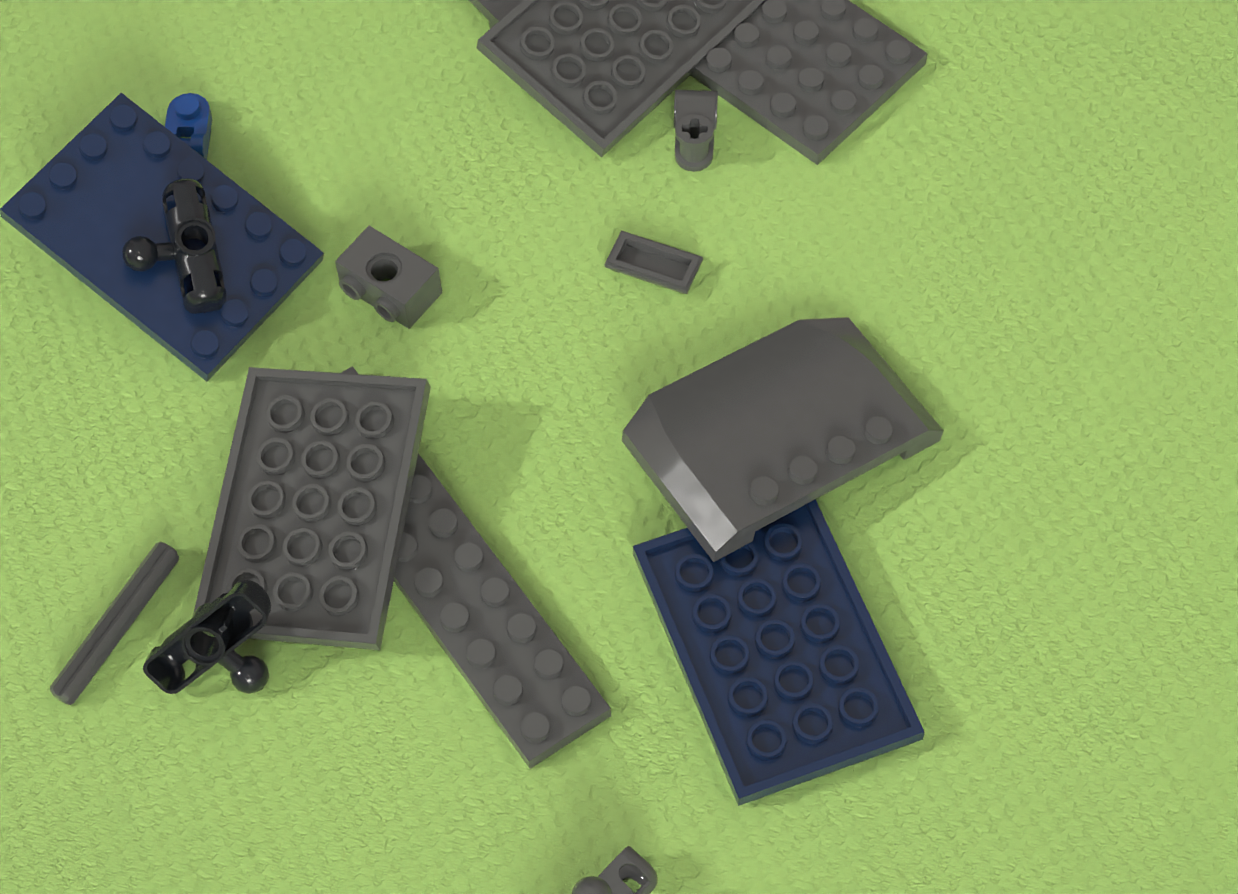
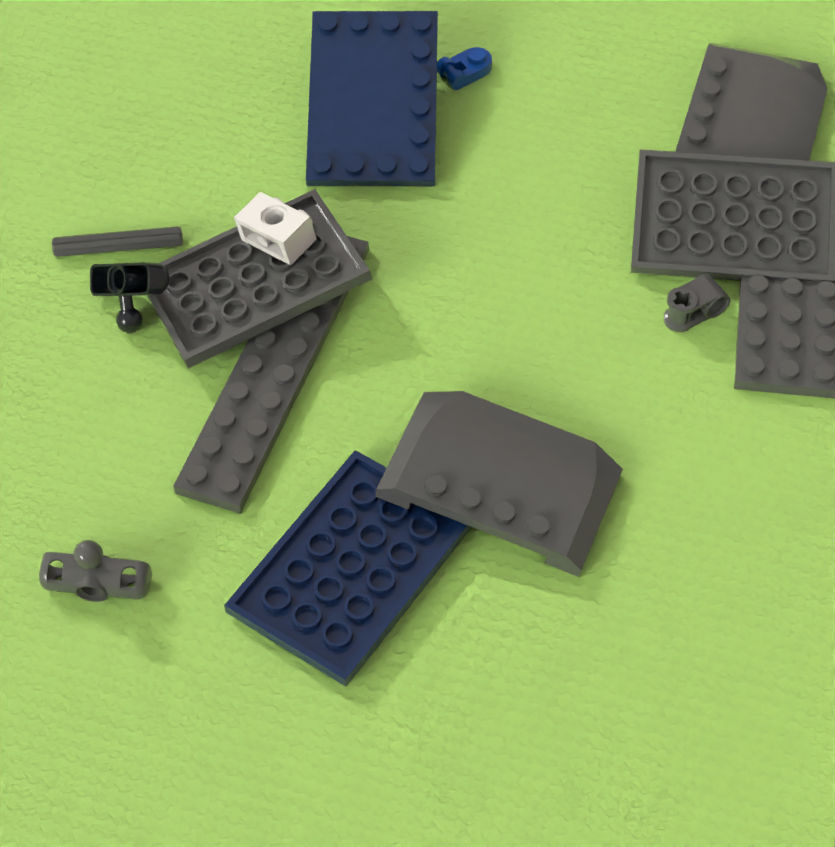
camera: 55 degrees right, 5 degrees down
(183, 223) = (379, 96): black piece -> none
(305, 443) = (275, 228): none -> white brick
(376, 257) = (442, 220): dark grey brick -> none
(653, 262) = (574, 344): dark grey tile -> none

